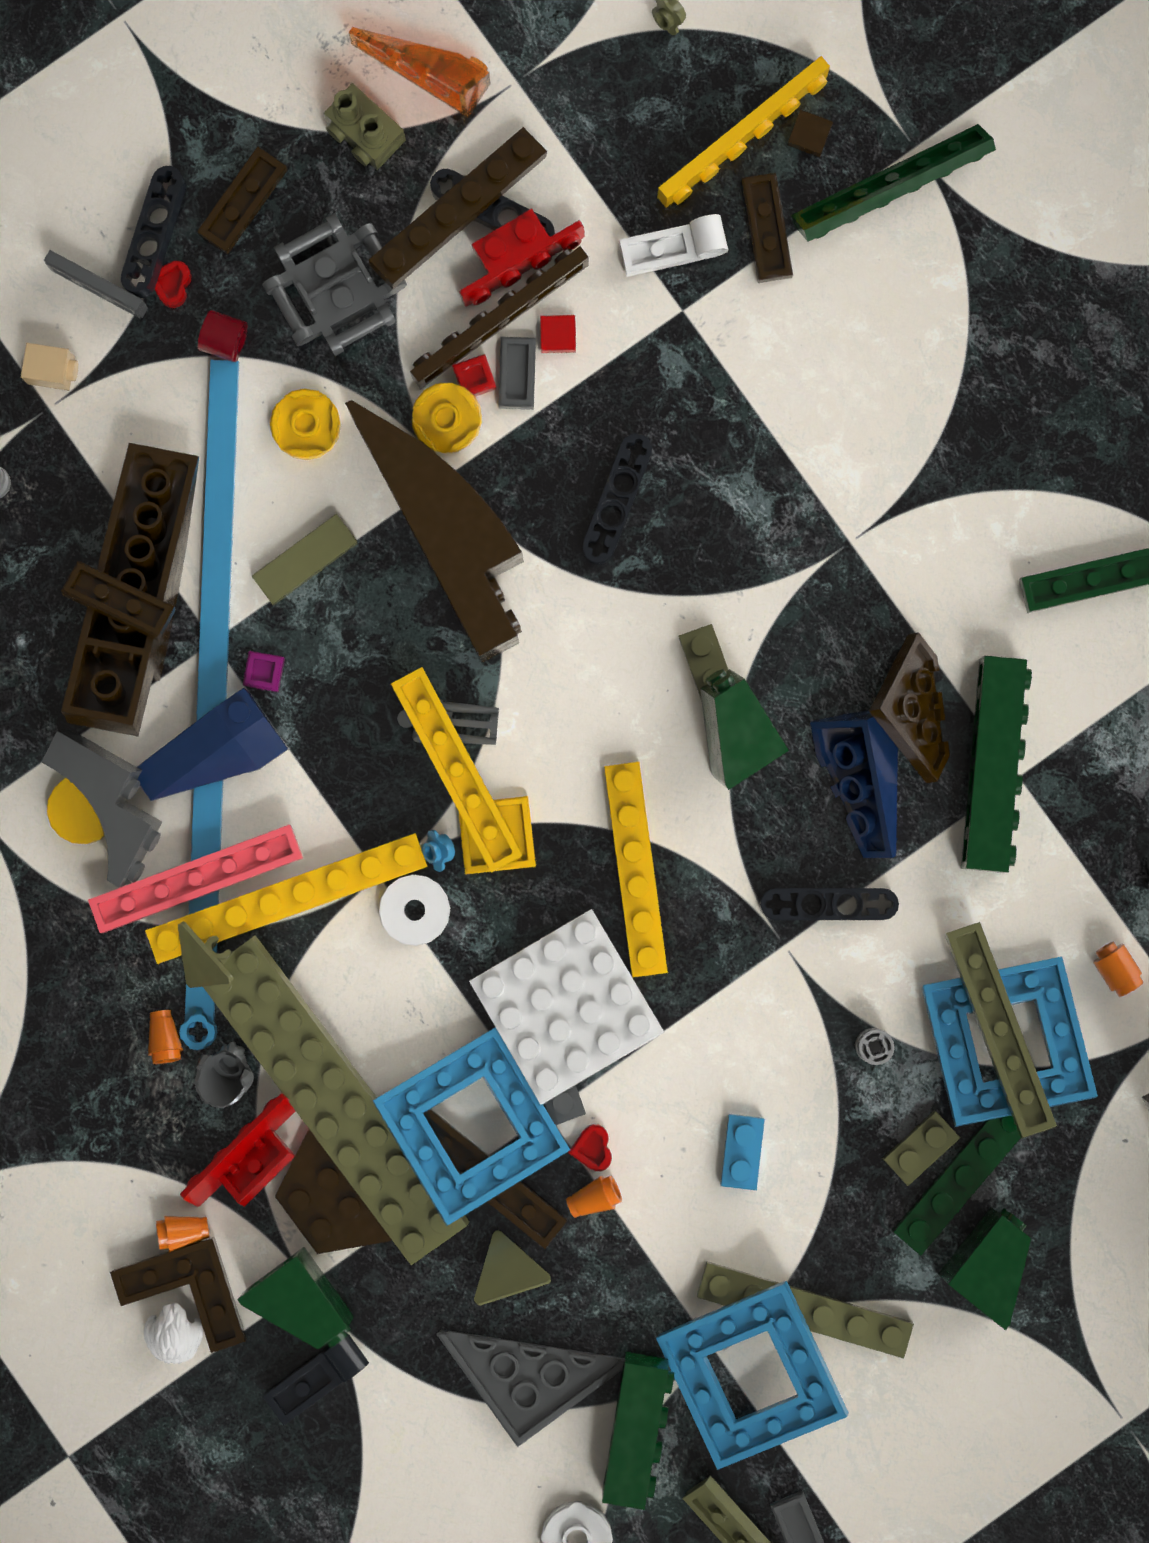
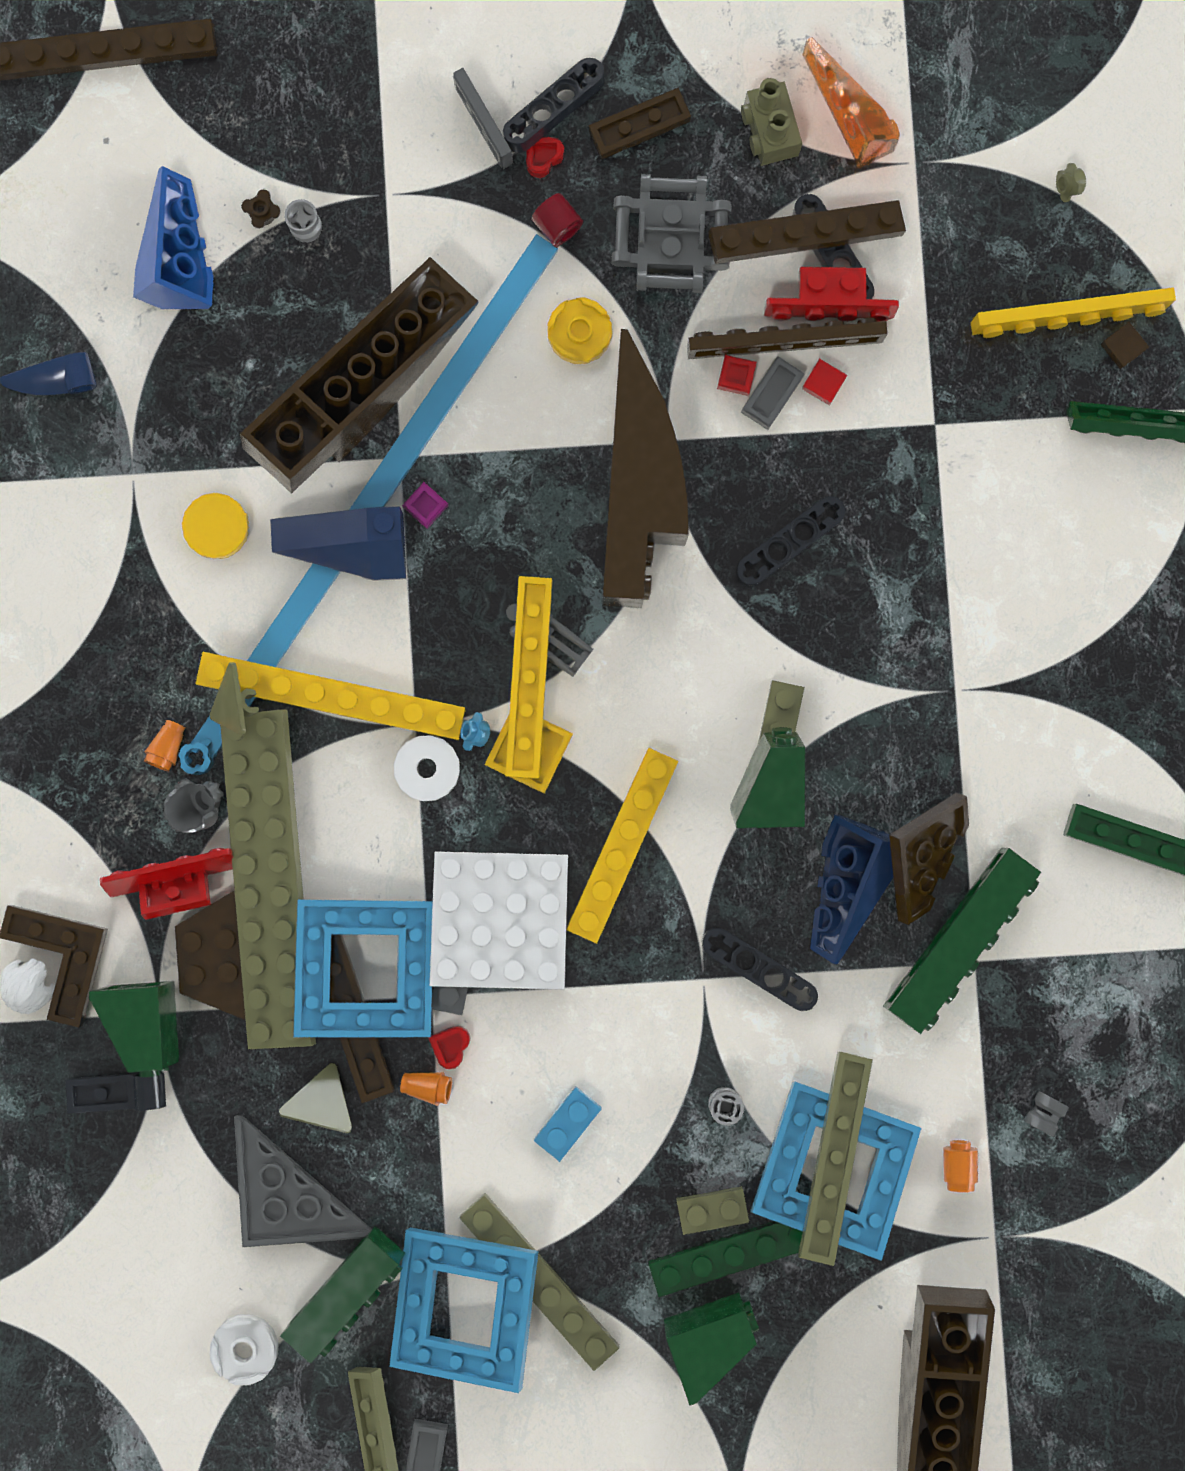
camera: 30 degrees right, 0 degrees up
(49, 366) = (405, 160): tan brick -> none
(107, 785) = (244, 518): dark grey arch -> none
(118, 600) = (341, 374): dark brown tile -> none
(181, 1231) = (82, 907): orange cone -> none
(195, 879) = (268, 635): coral plate -> none
(305, 559) = (512, 437): olive tile -> none
(446, 417) = (695, 393): yellow tile -> none
(674, 246) = (961, 369): white plate -> none
(766, 227) = (1043, 399): dark brown tile -> none

